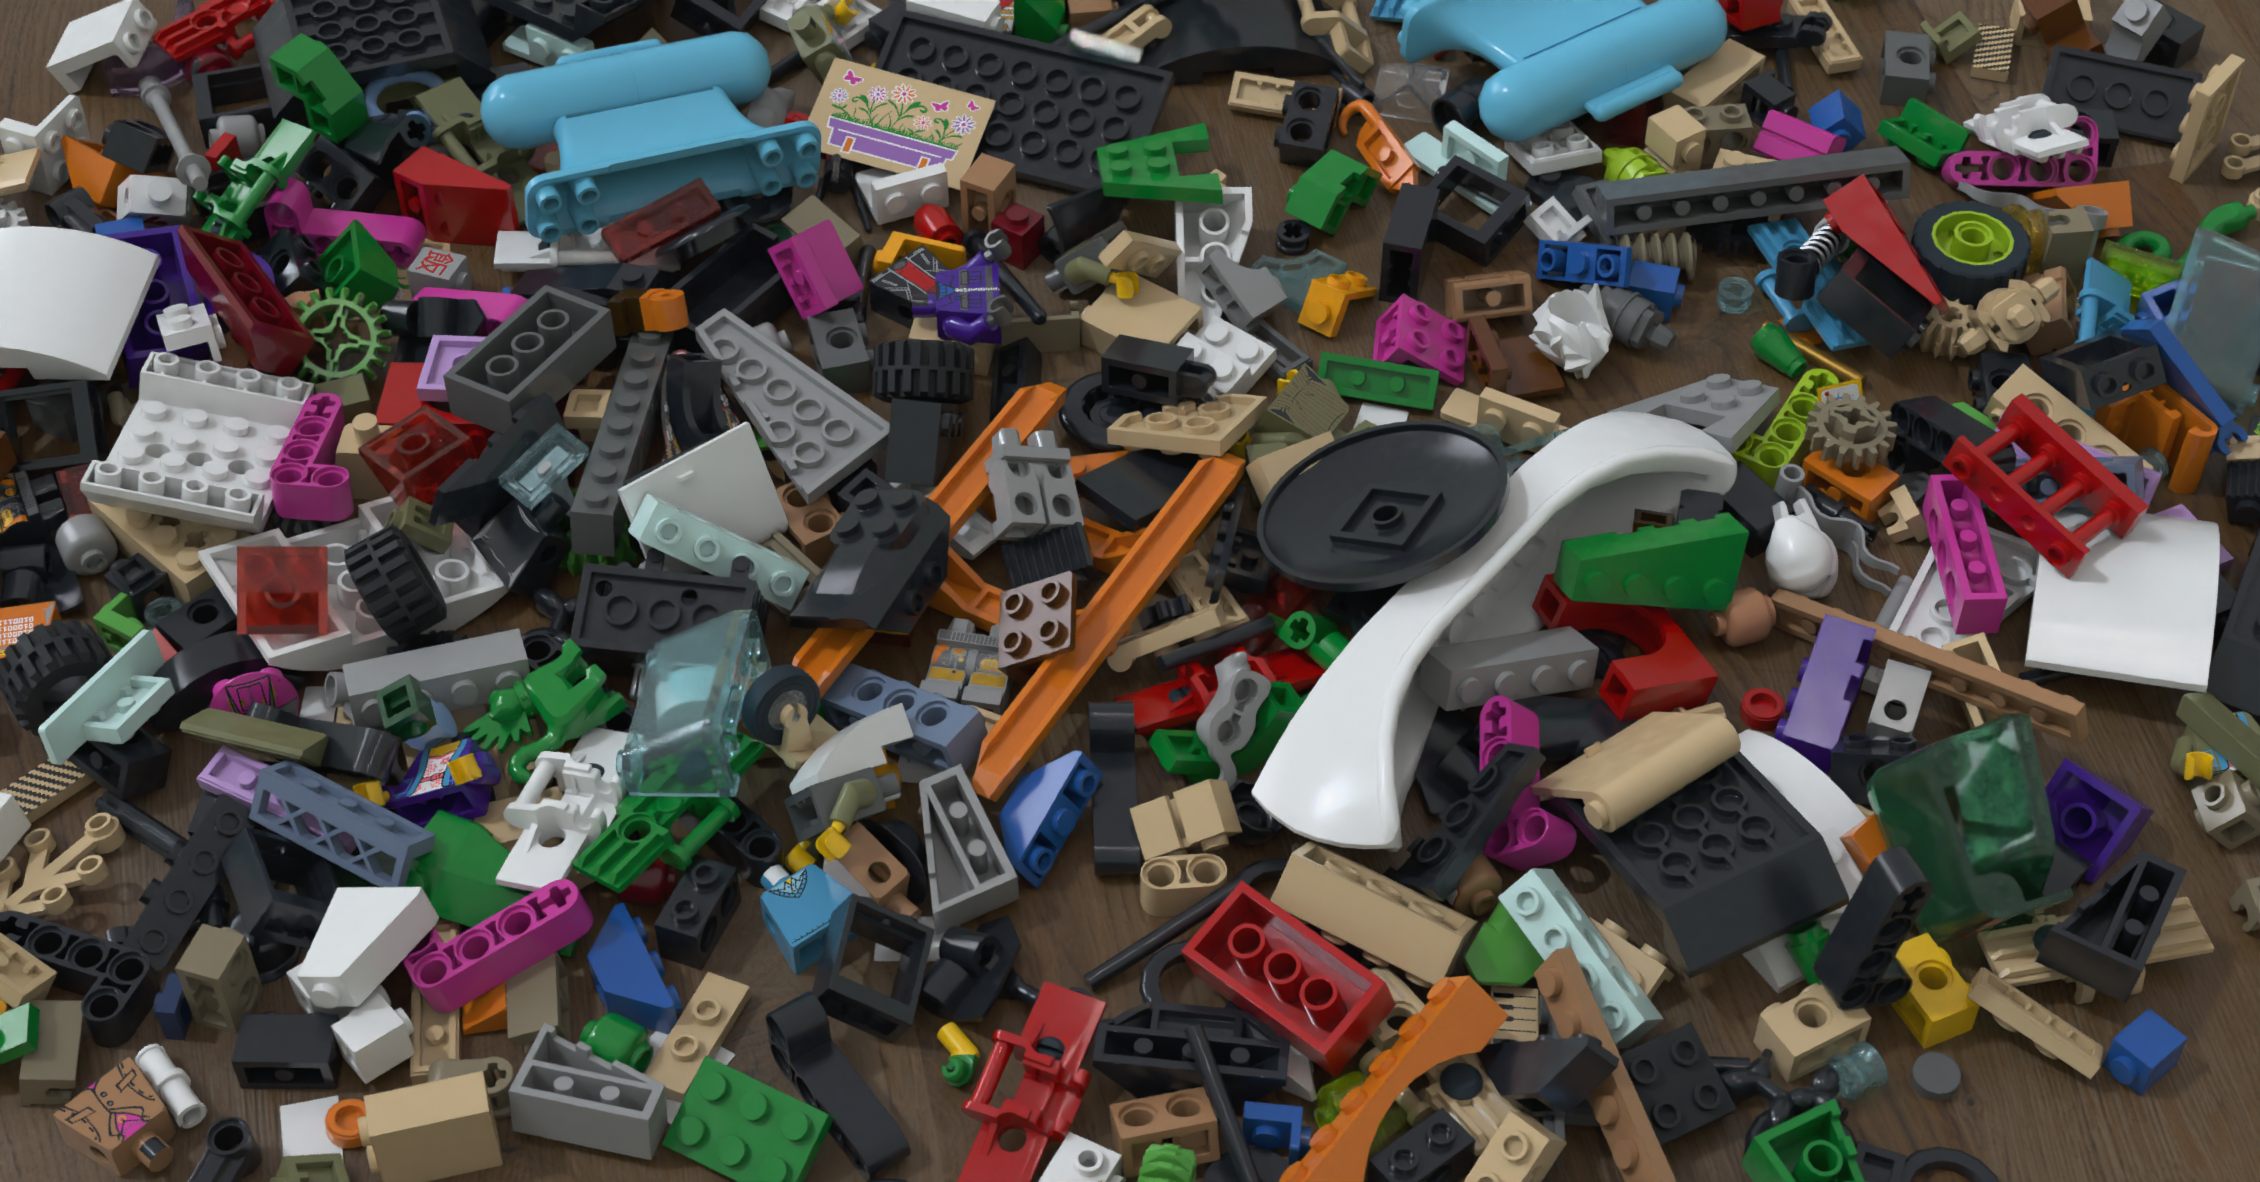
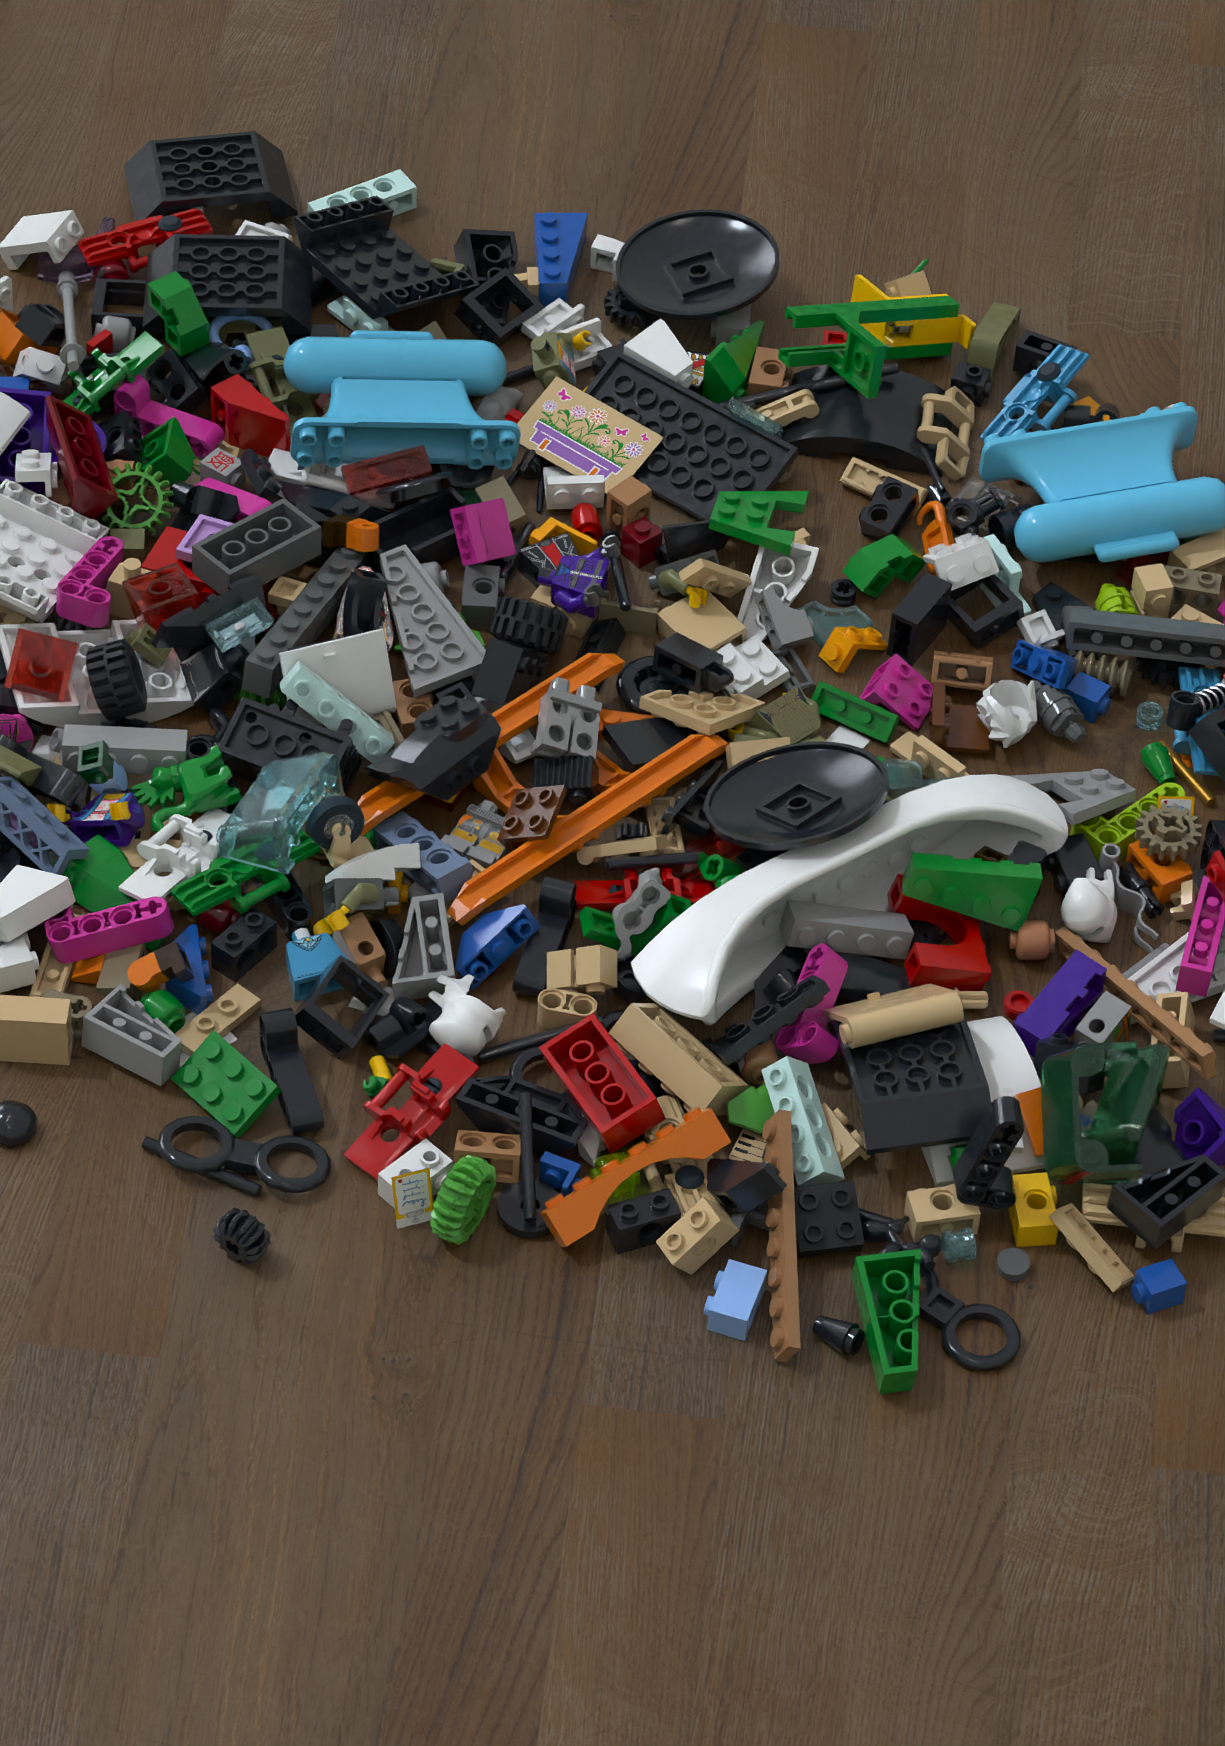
camera: 15 degrees right, 0 degrees up
(498, 268) = (261, 476): none -> black hinge
(594, 982) = (159, 967): none -> leg
(1054, 937) = (463, 1017): none -> white piece
(1414, 99) = (974, 509): none -> black connector
(1436, 157) = (963, 561): none -> white bracket
(1555, 150) = (1069, 575): white tile -> none

